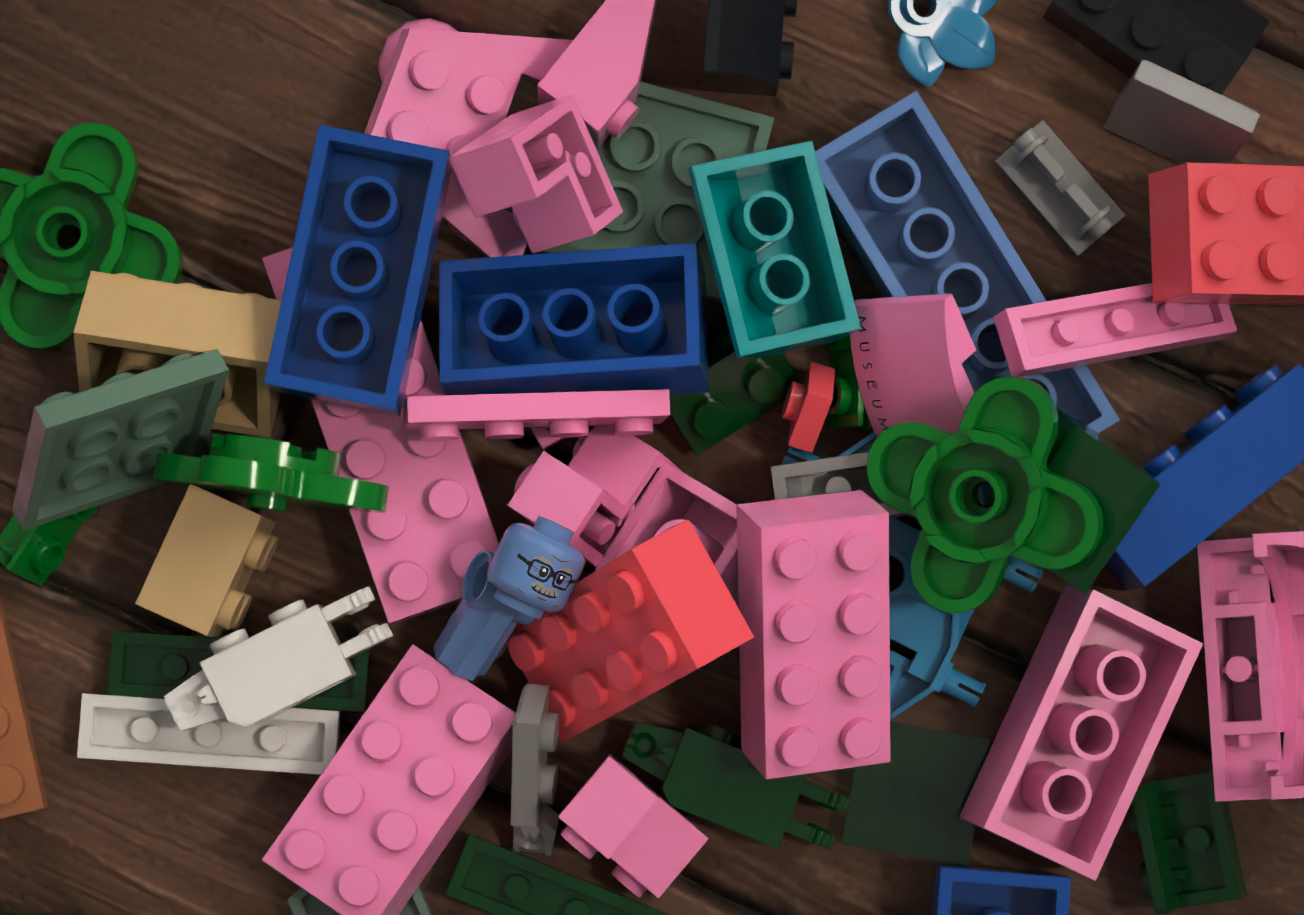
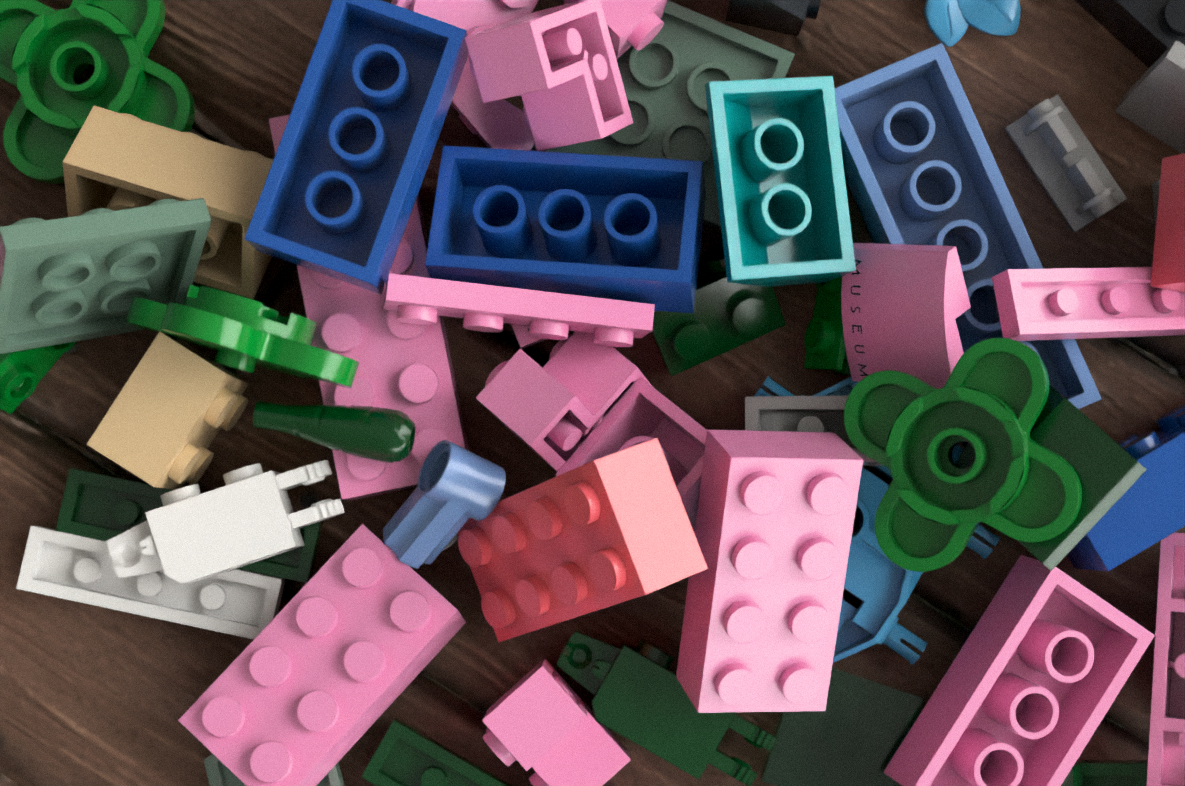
camera: 10 degrees right, 0 degrees up
(391, 553) = (355, 430): none -> dark green piece
(532, 778) = (463, 673): light grey hinge -> none
(536, 567) = (494, 465): medium blue head -> none
(808, 406) = (790, 342): coral plate -> none

